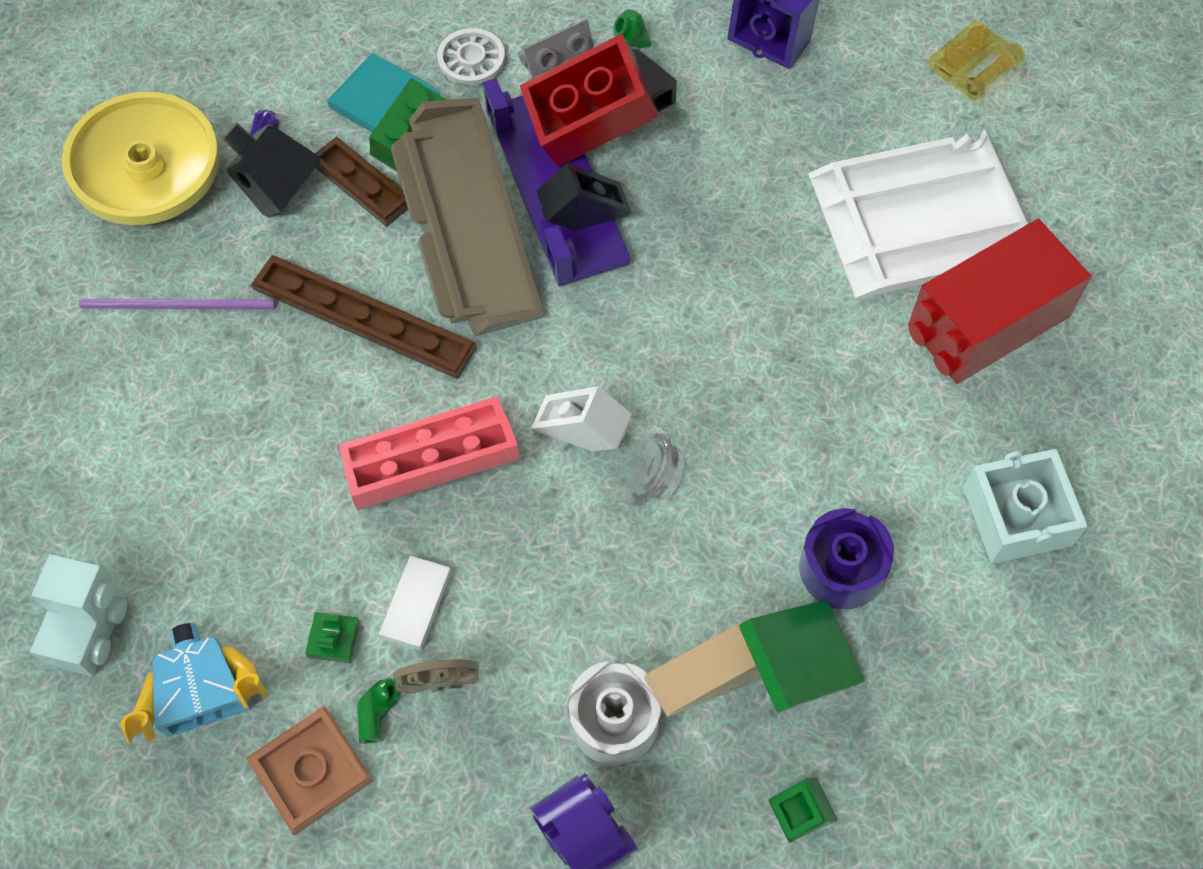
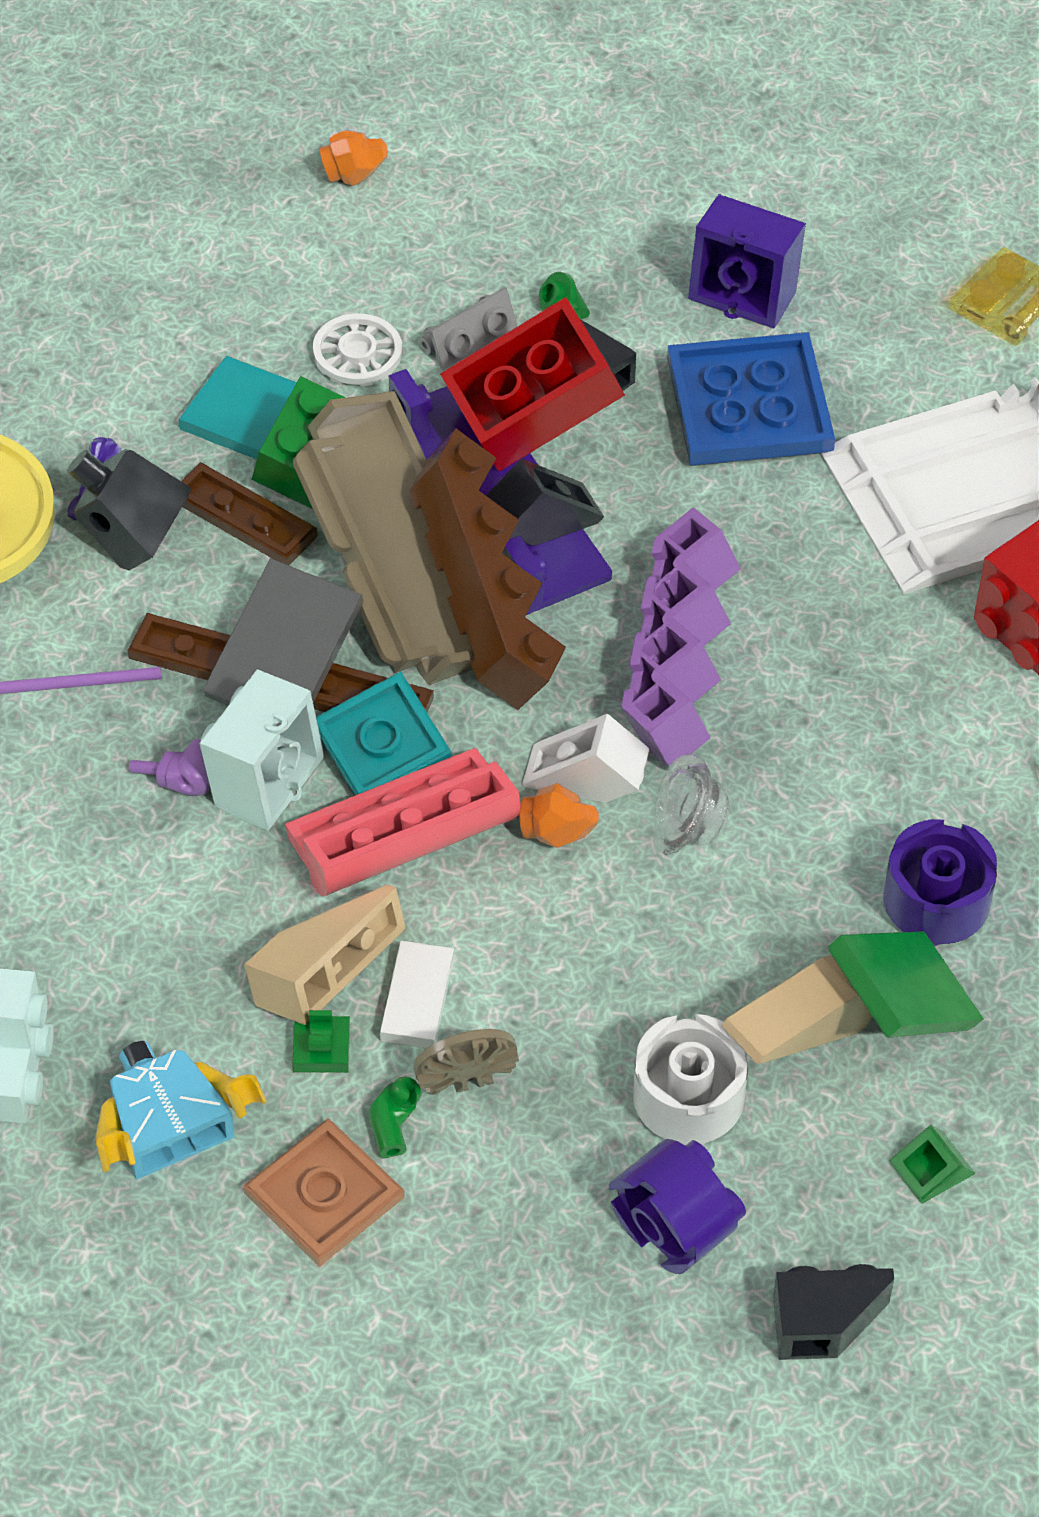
camera: 10 degrees left, 10 degrees down
(271, 390) = (178, 770): none -> medium lavender piece
(327, 382) = (262, 749): none -> light aqua brick
(342, 564) = (322, 955): none -> tan slope
(364, 295) = (286, 630): none -> dark grey tile
(426, 378) = (381, 735): none -> teal tile
(525, 267) = (486, 587): none -> reddish brown brick
(549, 463) = (556, 816): none -> orange rock
(671, 308) = (678, 622): none -> medium lavender brick
(760, 125) = (750, 398): none -> blue plate

